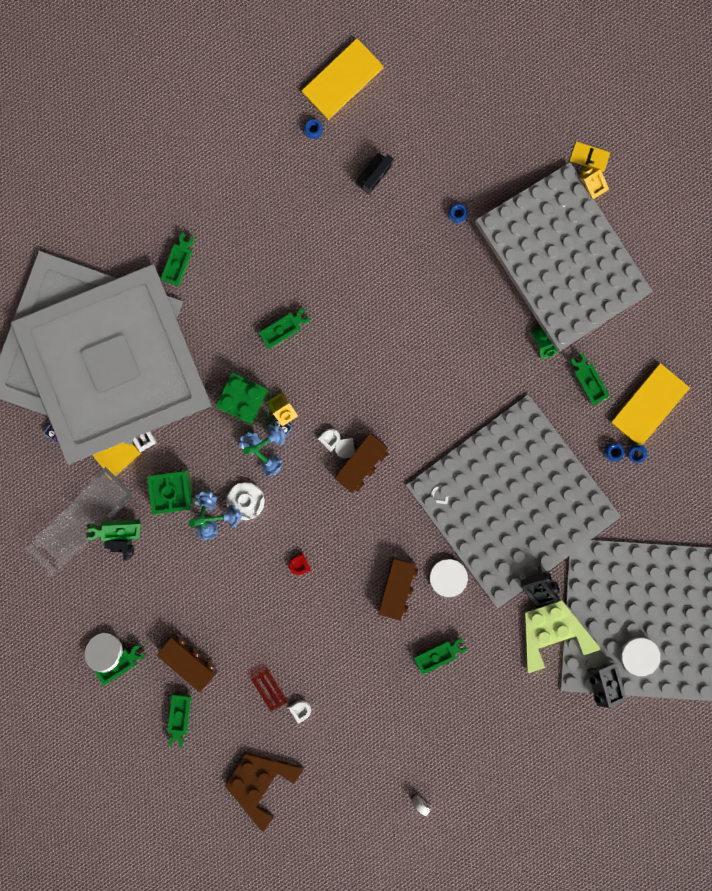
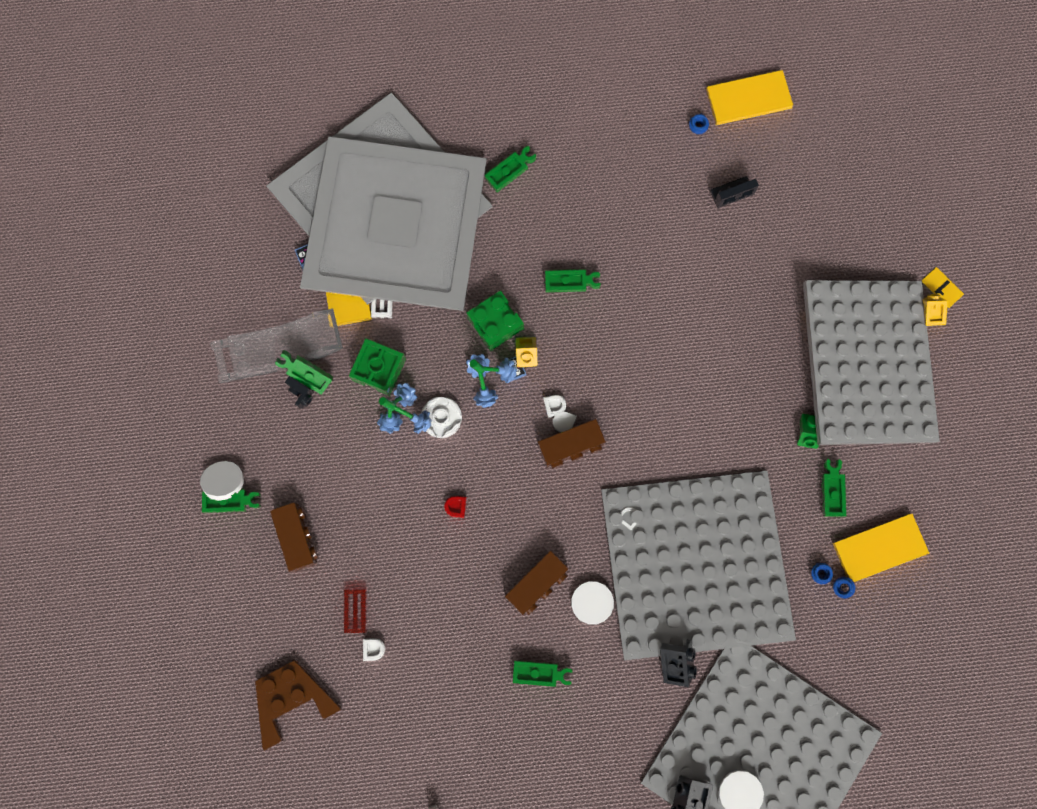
camera: 30 degrees right, 10 degrees down
(179, 717) = (253, 586): green plate -> none
(458, 207) = (791, 263): blue plate -> none
(551, 625) = (667, 709): yellowish green wing -> none

